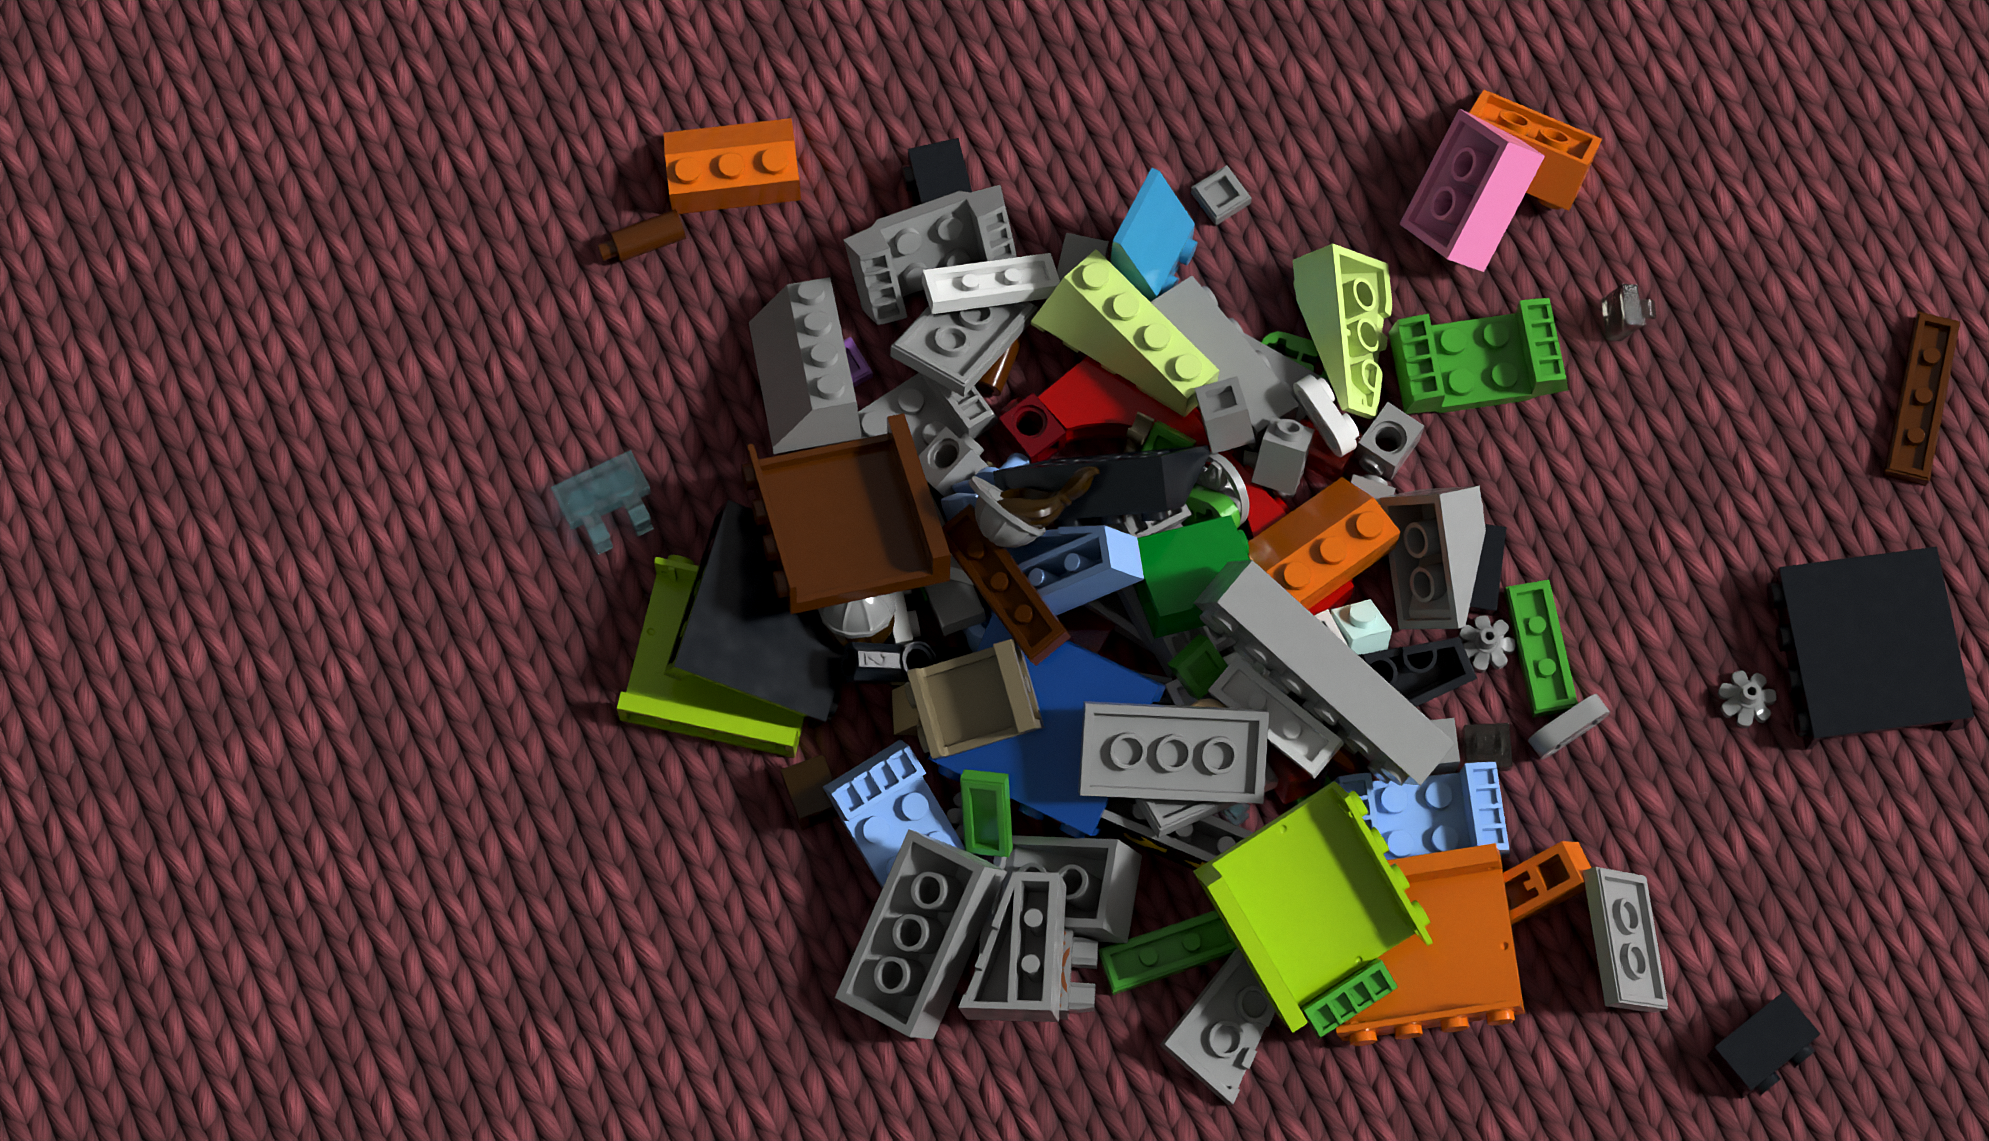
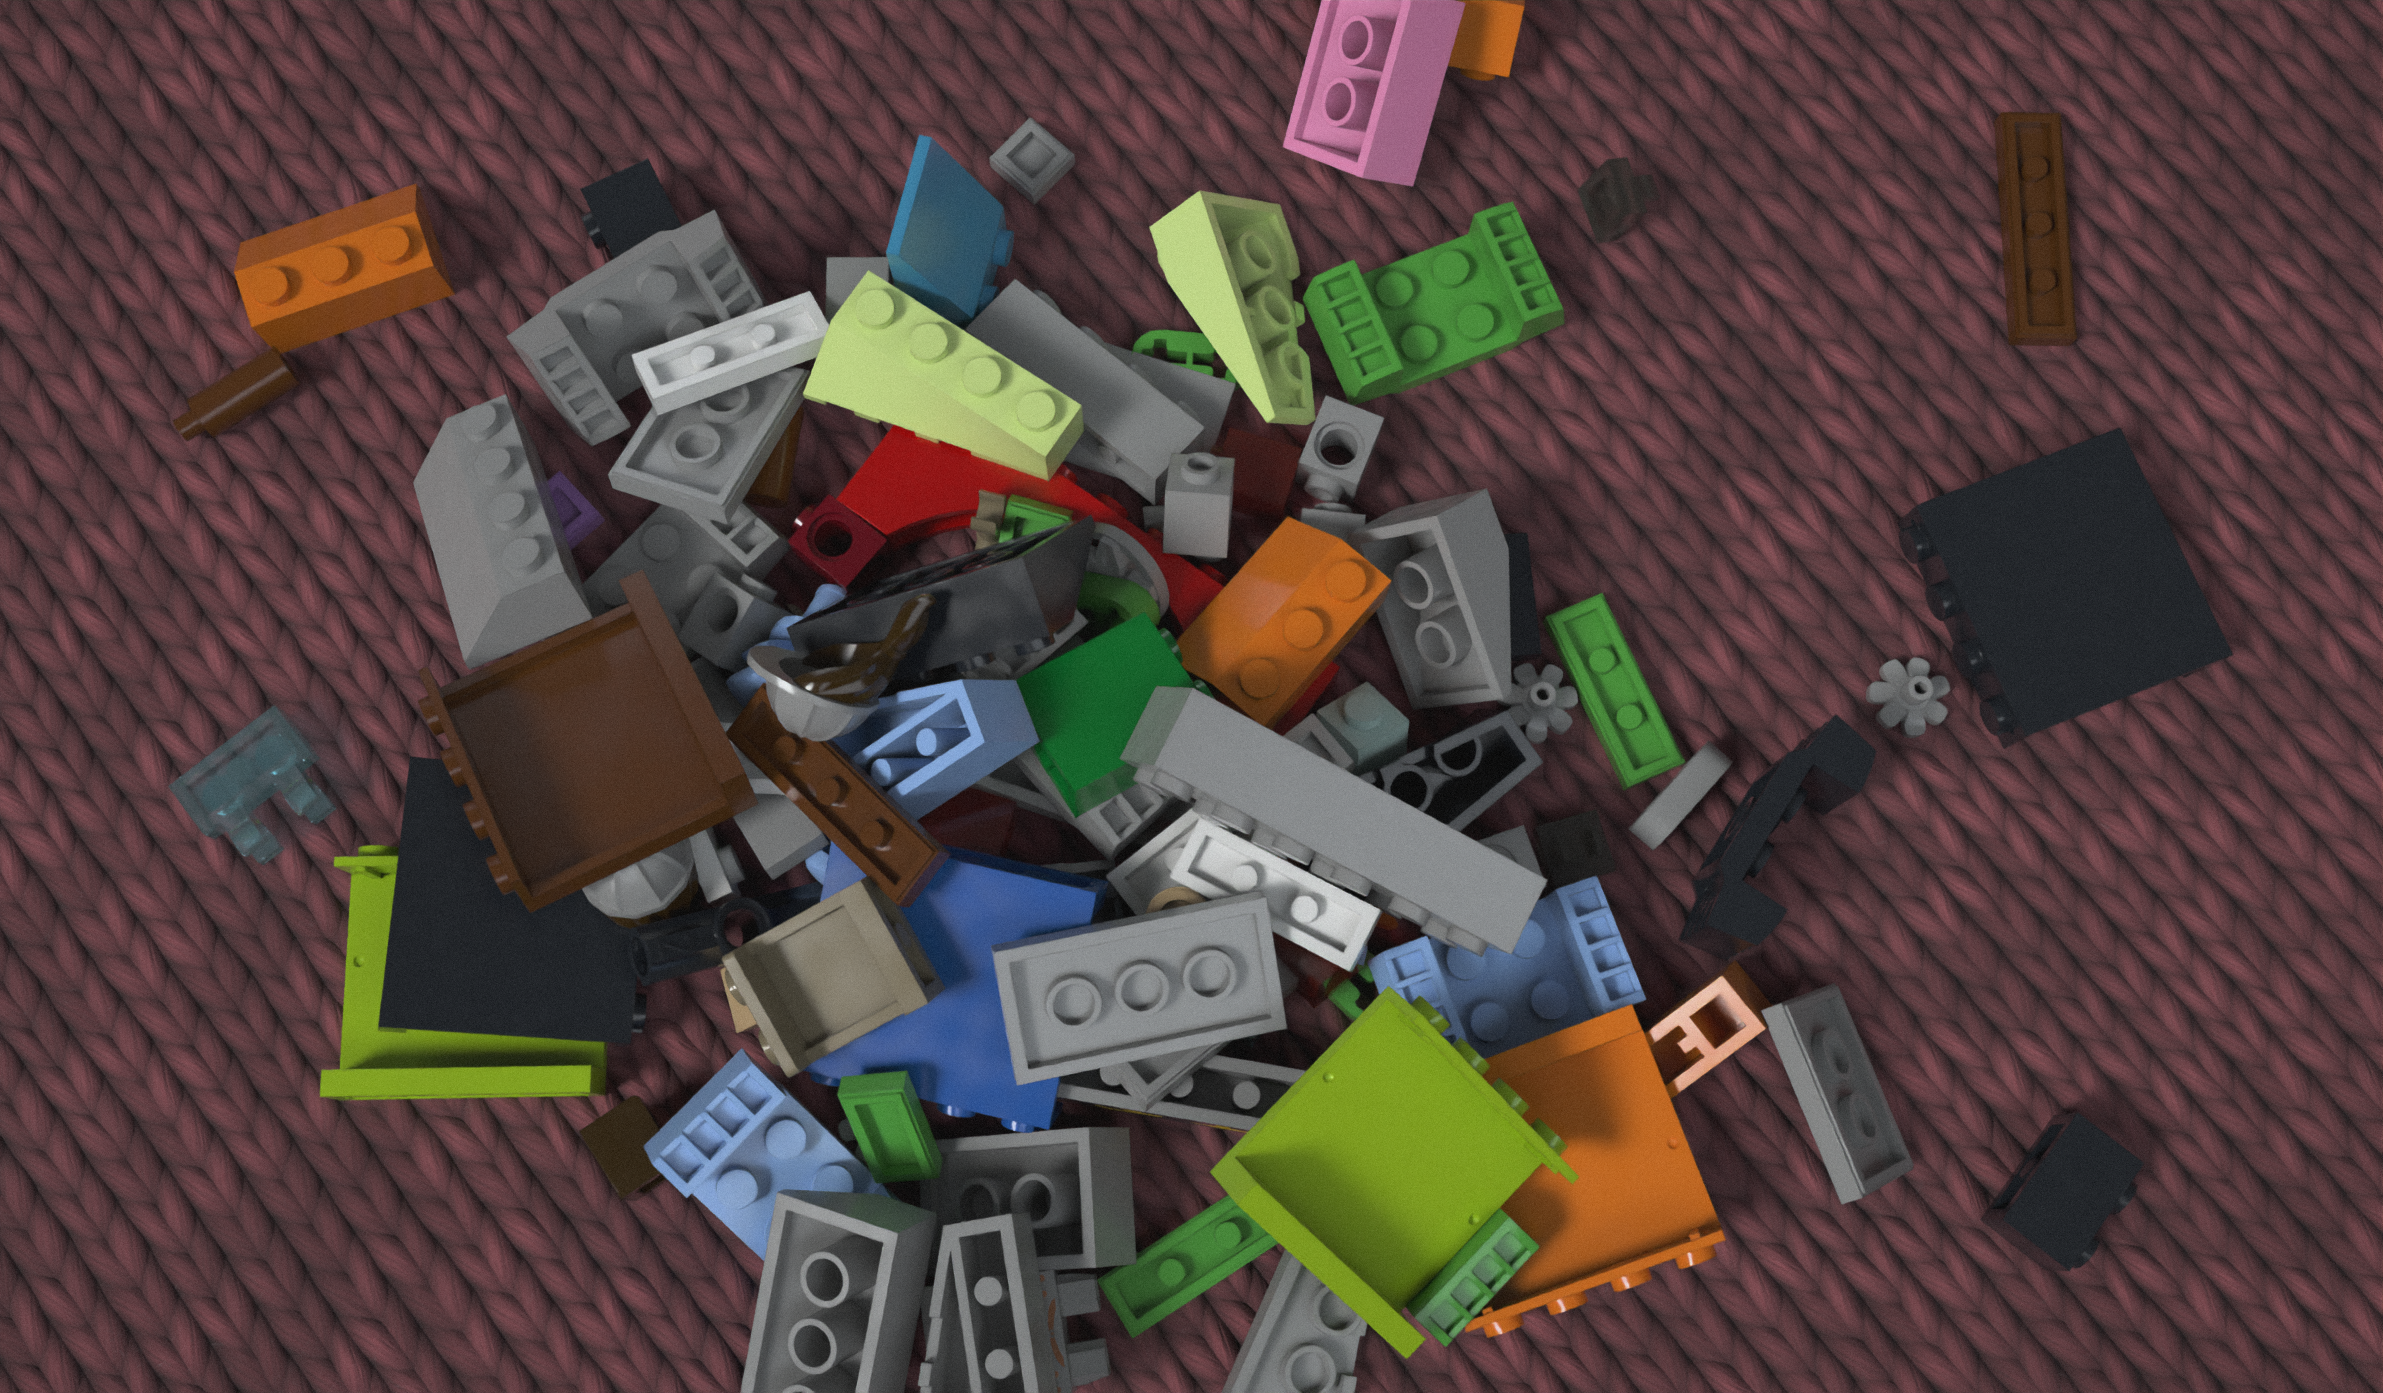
camera: 15 degrees left, 5 degrees up
(1198, 666) = (1148, 843): bright green plate -> none
(1224, 415) = (1104, 467): light grey brick -> none
(1317, 402) = (1229, 417): white plate -> none
(1658, 726) = (1817, 773): none -> black plate

